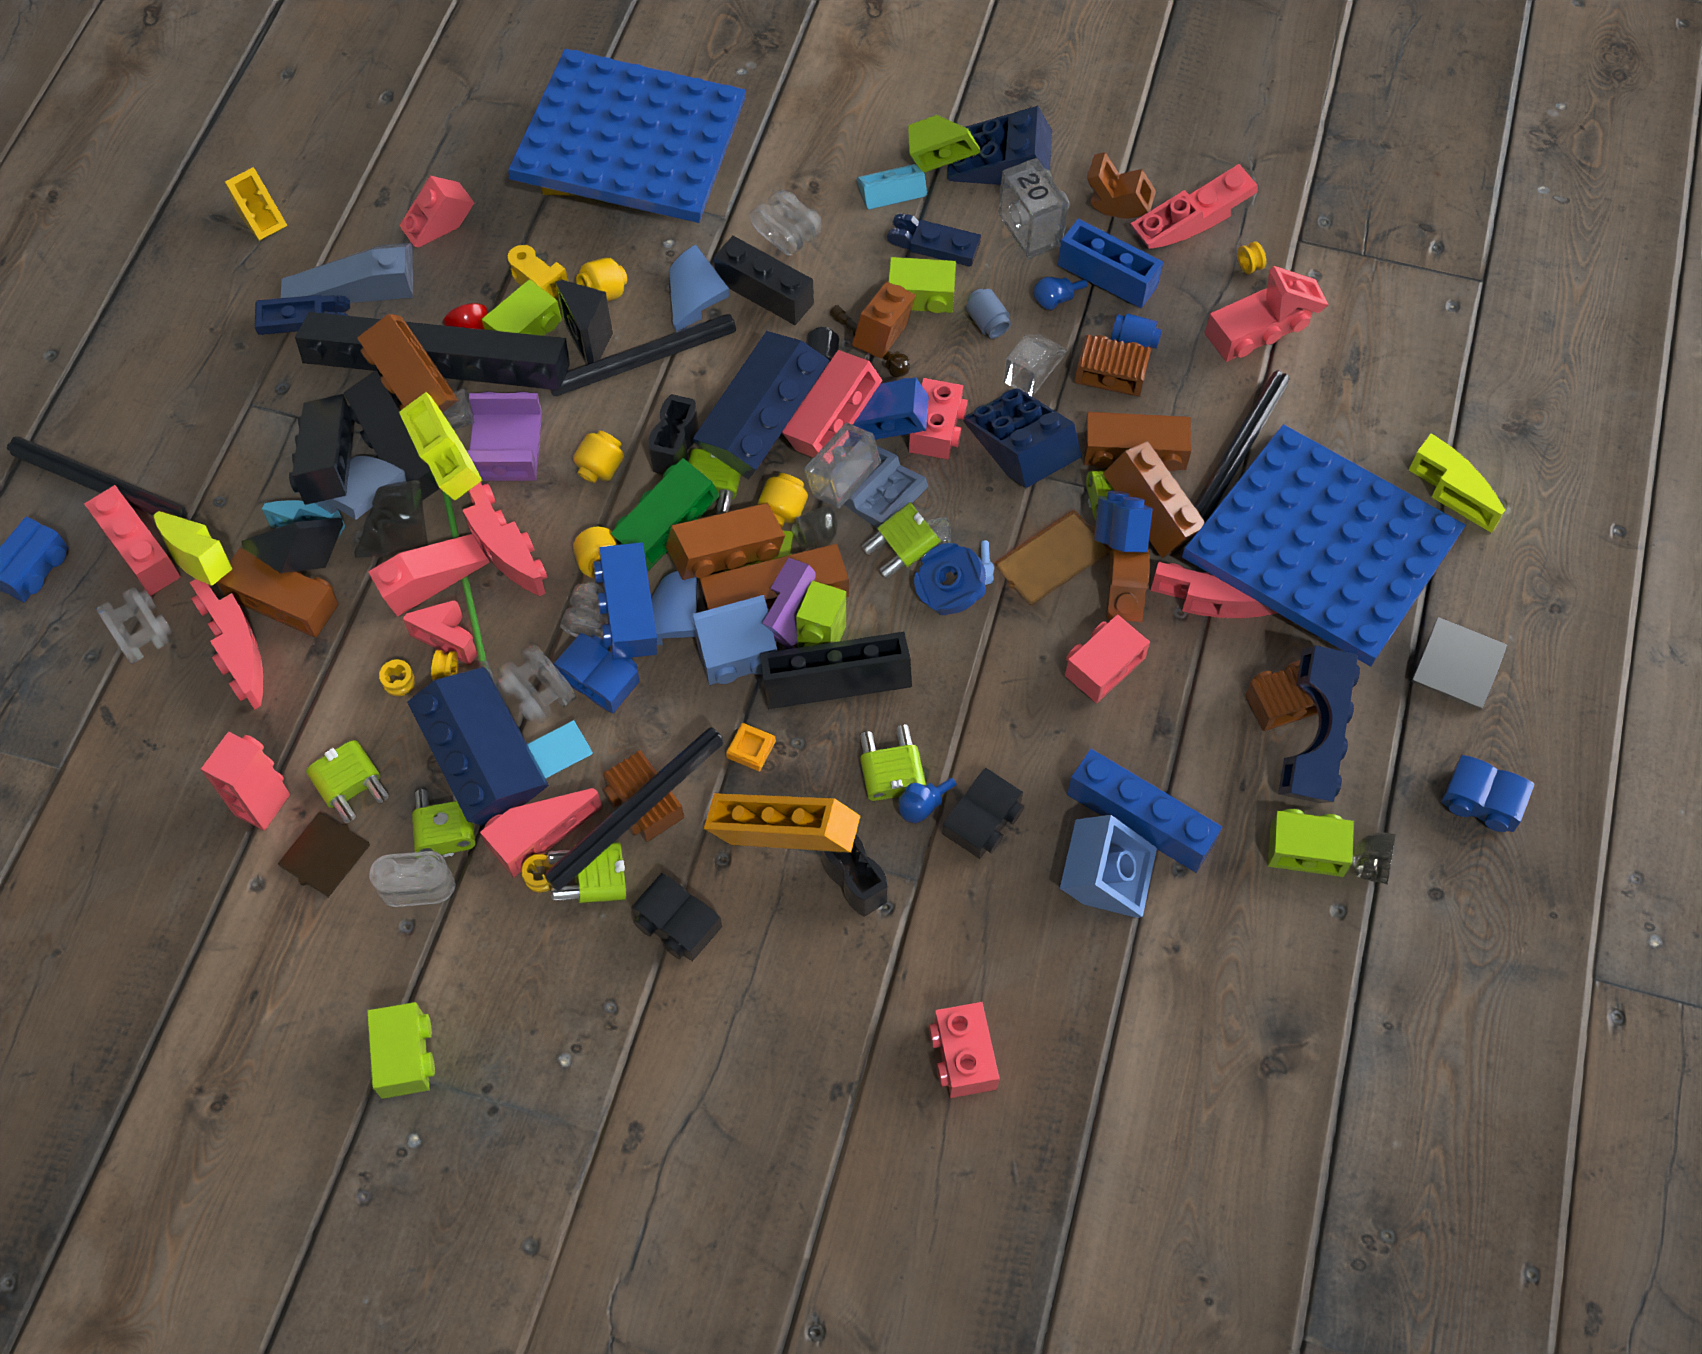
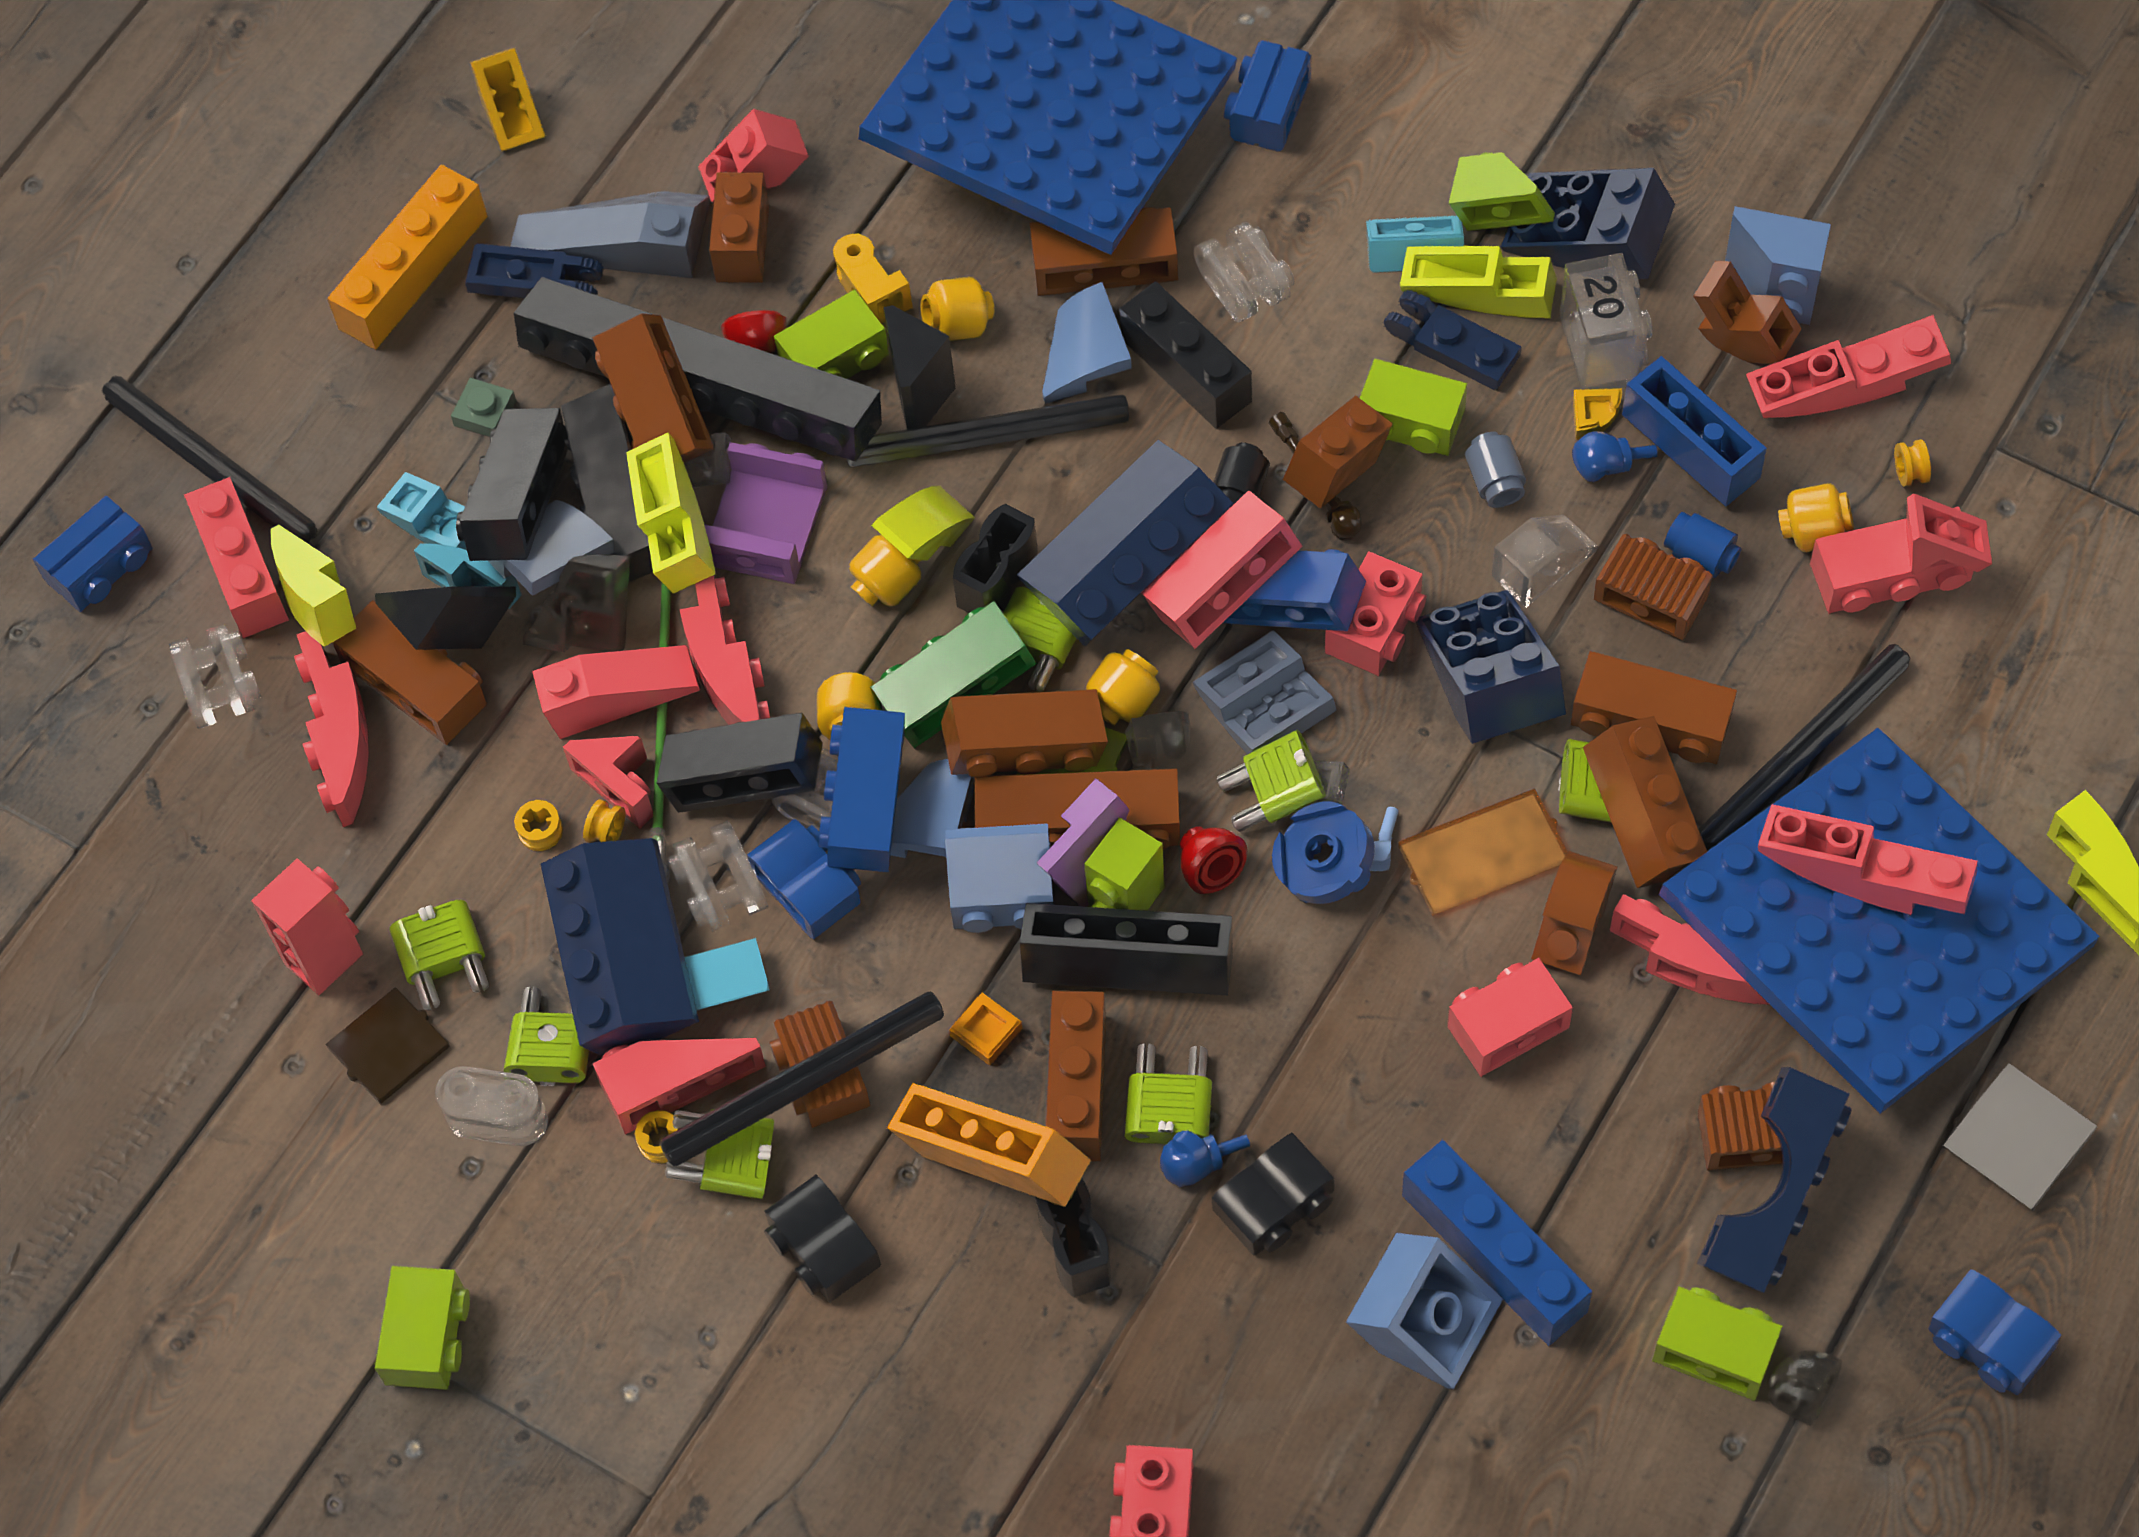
camera: 20 degrees right, 0 degrees up
(209, 318) = (407, 257): none -> light orange brick
(261, 483) = (422, 511): none -> medium azure slope
(286, 407) = (482, 406): none -> sand green plate
(438, 256) = (739, 227): none -> dark orange brick
(532, 602) = (740, 762): none -> black brick
(619, 417) = (924, 523): none -> neon yellow slope
(670, 236) = (1141, 257): none -> dark orange brick
(772, 111) = (1269, 95): none -> blue brick
(823, 754) = (1077, 1069): none -> dark orange brick
(842, 465) = (1215, 657): clear brick -> none
(875, 598) = (1211, 858): none -> red brick
(943, 198) = (1481, 279): none -> neon yellow slope
(1038, 265) = (1595, 409): none -> yellow tile
(1123, 522) = (1585, 827): blue brick -> none
(1133, 144) = (1779, 256): none -> medium blue slope
(1201, 300) = (1815, 514): none -> yellow head
(1304, 508) = (1852, 862): none -> coral slope

